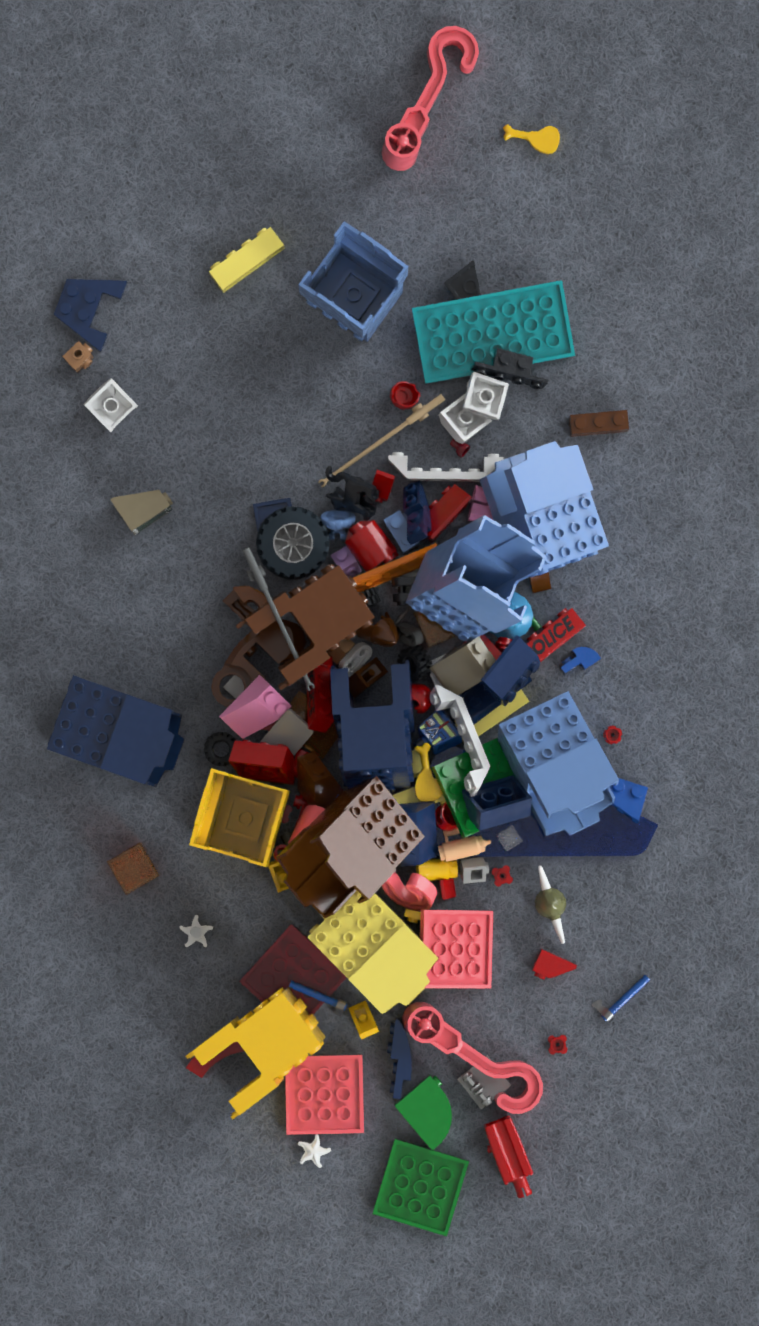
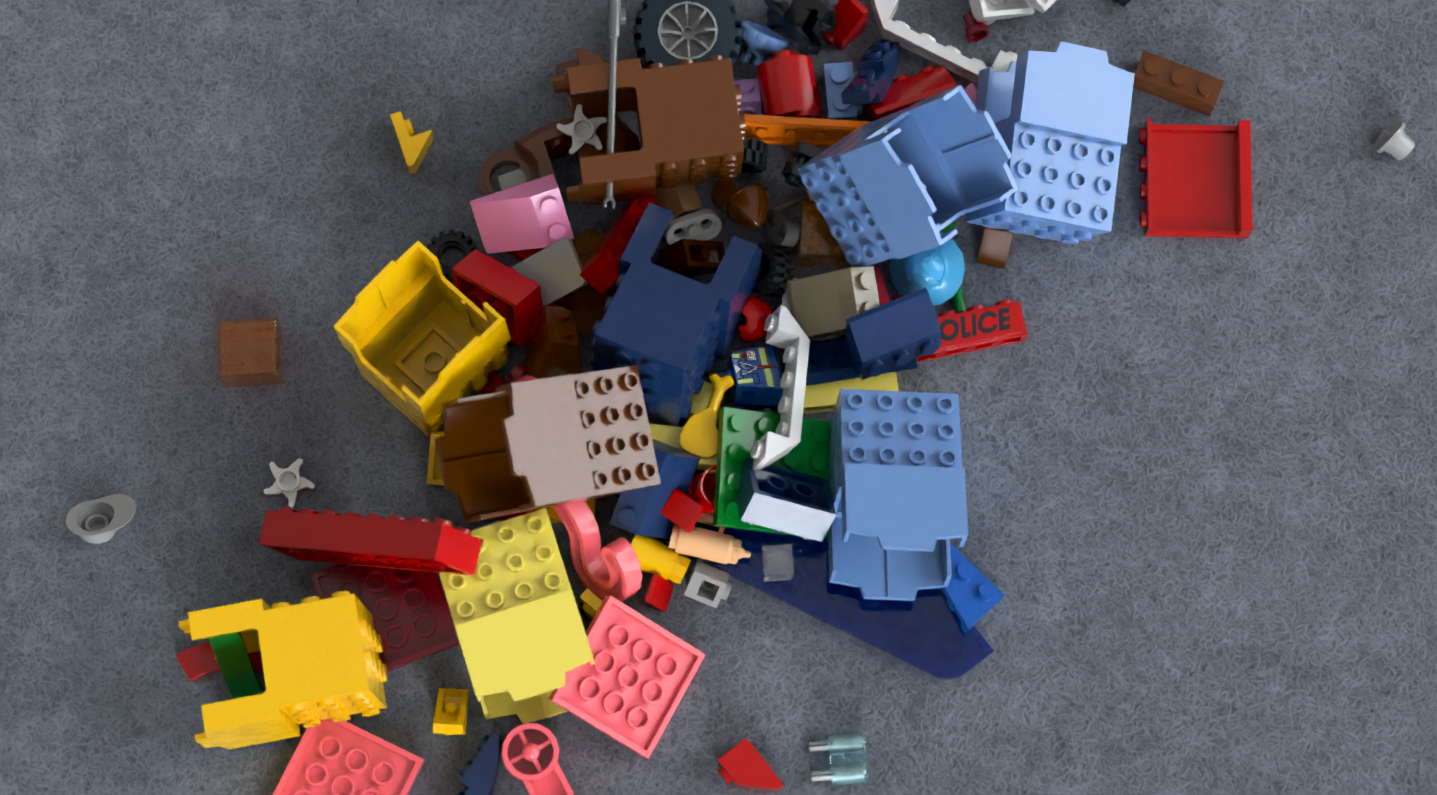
camera: 30 degrees right, 10 degrees down
(99, 1010) = (100, 518): none -> light grey piece
(117, 732) = (324, 158): dark blue piece -> none
(163, 694) = (413, 147): none -> yellow slope
(229, 1060) = (235, 664): none -> green tile
(264, 639) = (582, 130): none -> white animal
(271, 951) = (371, 540): none -> red brick
(339, 1005) = (429, 674): blue piece -> none
(439, 837) = (682, 510): none -> red slope
(506, 879) = (735, 617): red plate -> none
(550, 903) = (790, 683): olive helmet -> none
(583, 656) = (1003, 375): blue brick -> none
(604, 929) = (847, 758): none -> clear light blue piece
(607, 735) = (991, 493): red plate -> none
(638, 477) = (1196, 180): none -> red panel
(744, 394) = (1394, 141): none -> light grey piece

